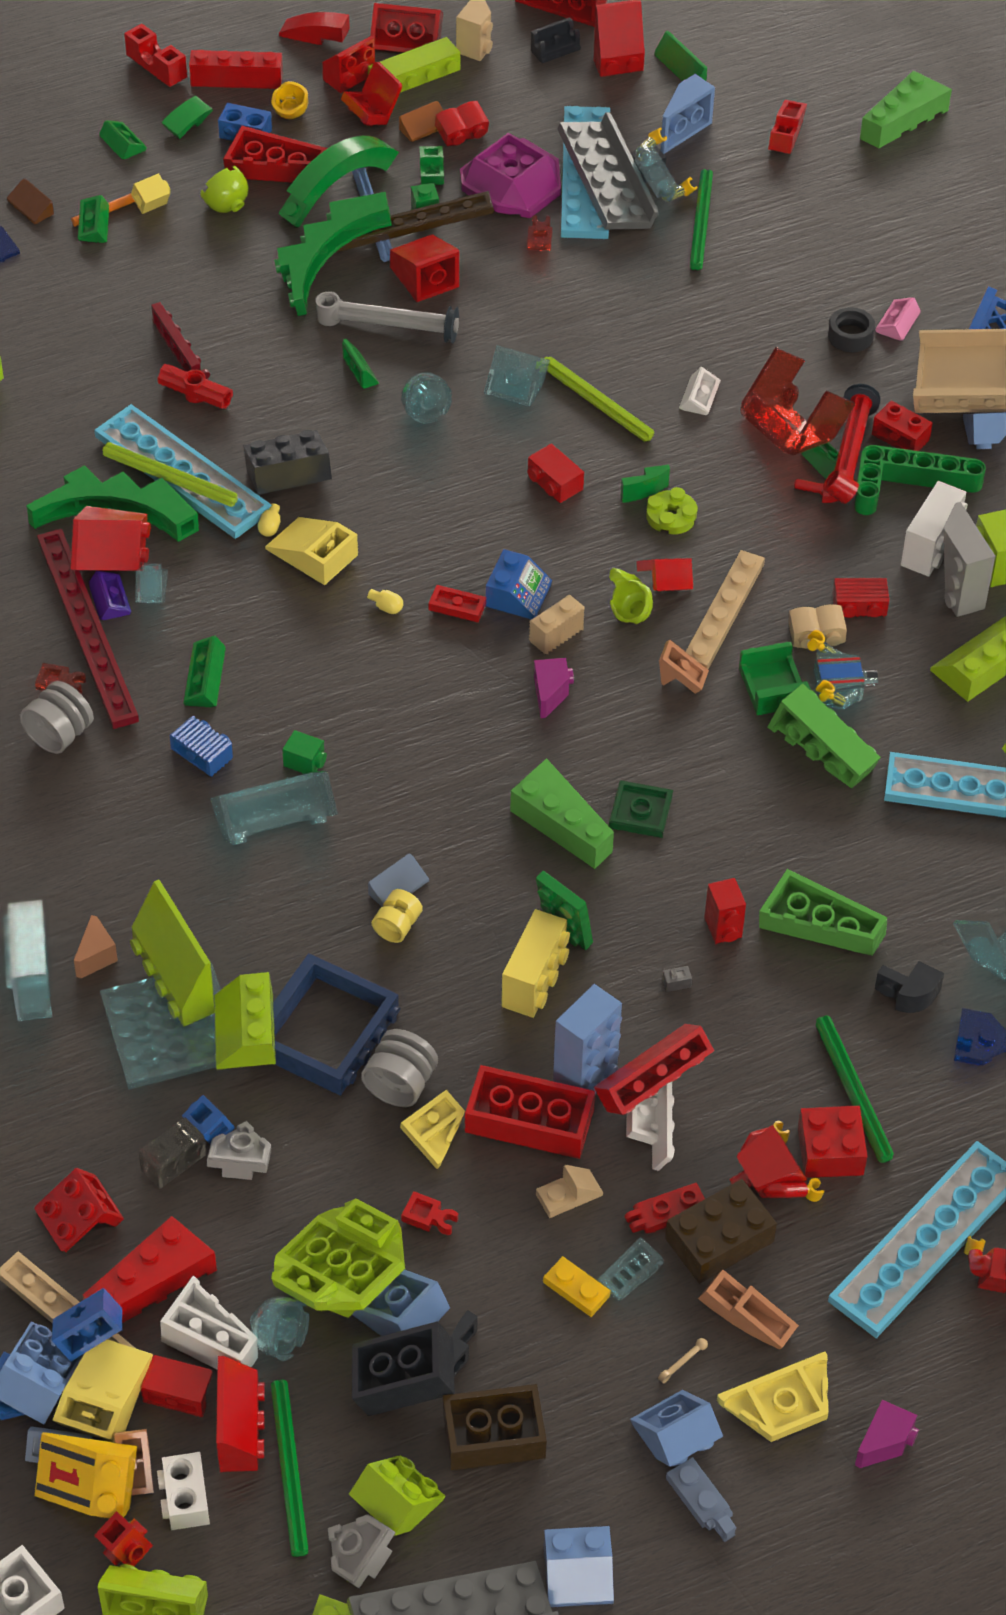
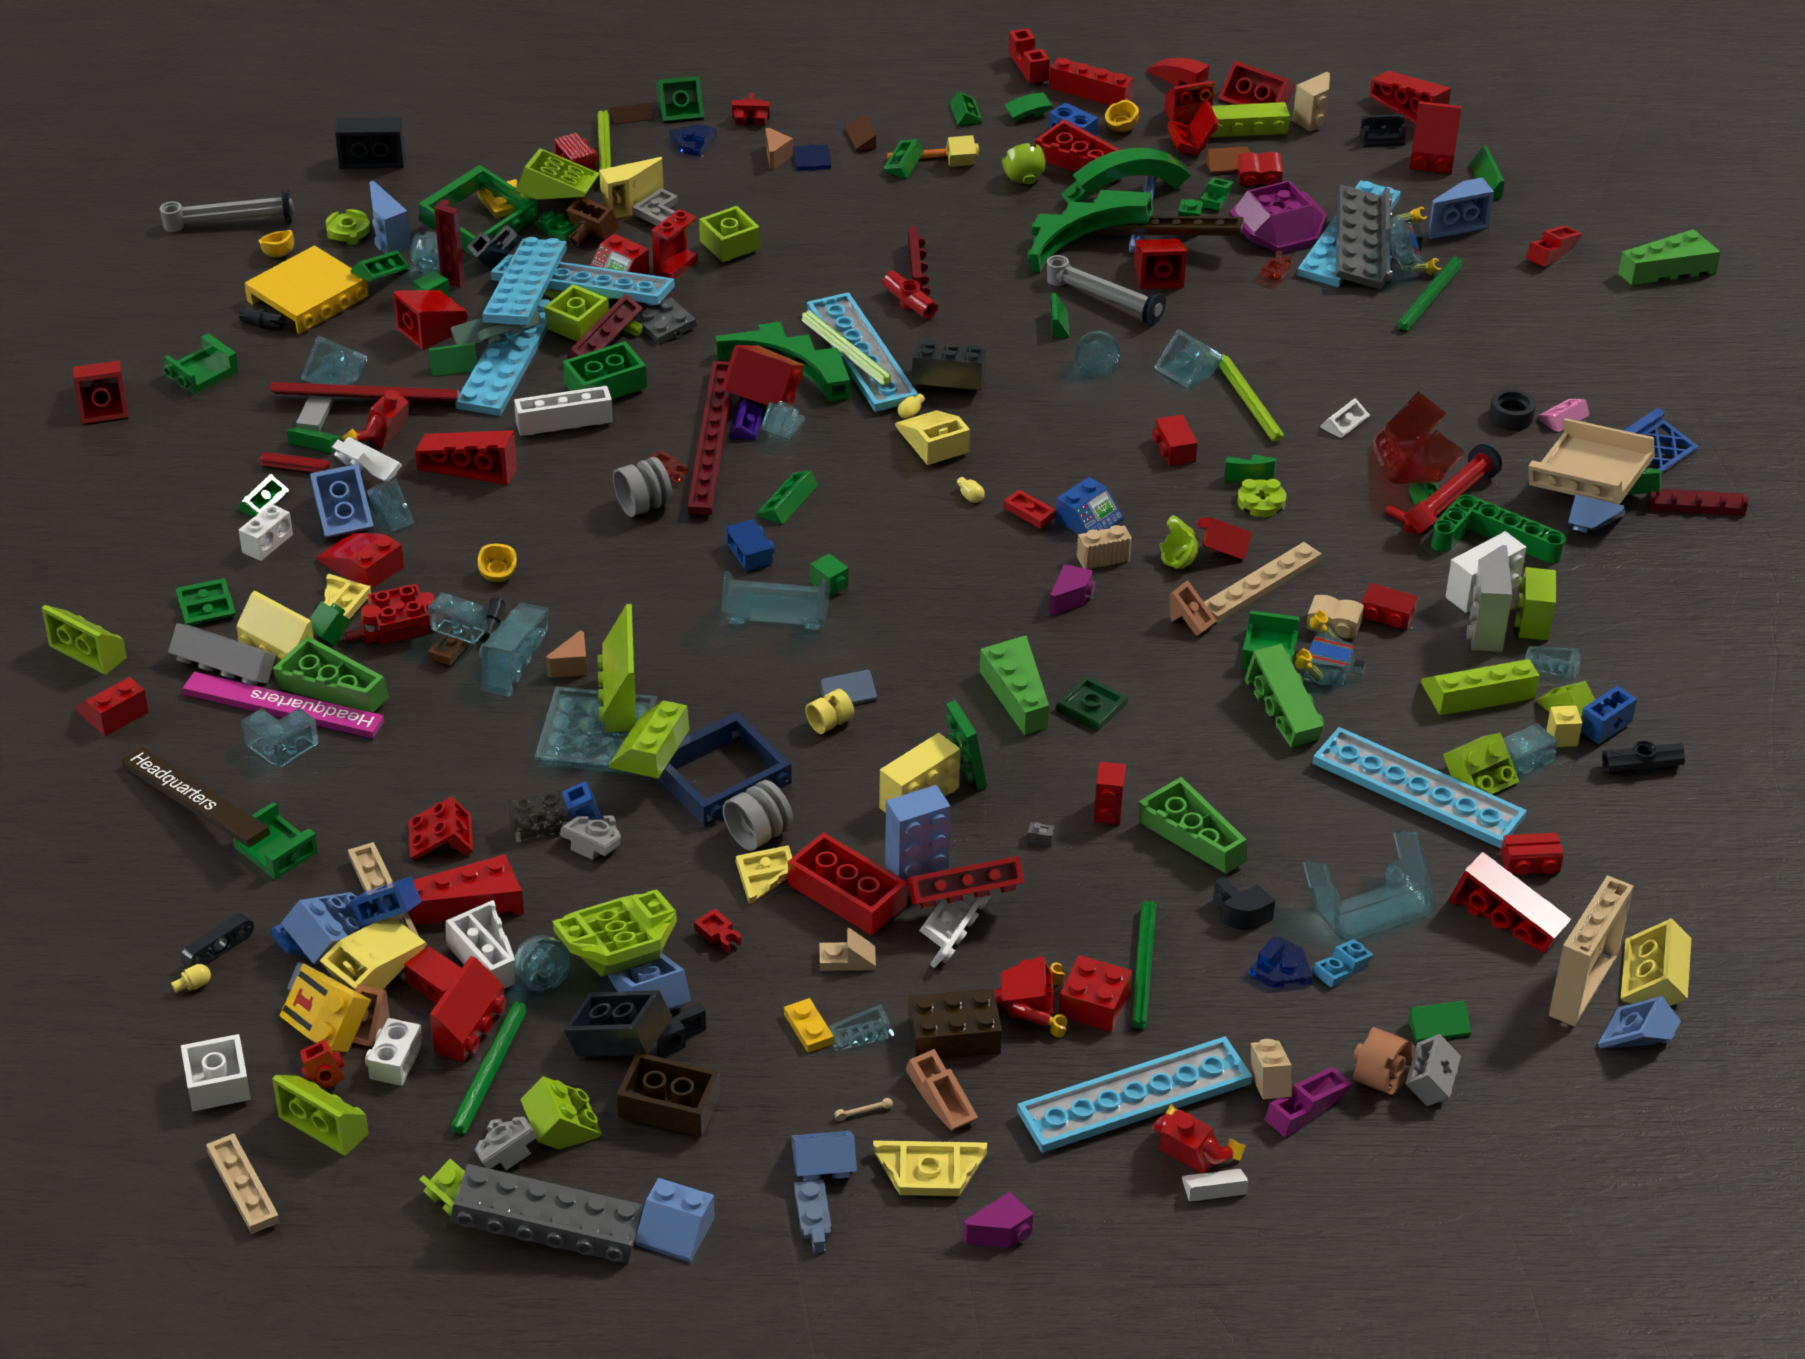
camera: 25 degrees right, 10 degrees down
(654, 1212) = (899, 993): red hinge -> none
(901, 427) = (1510, 492): red brick -> none

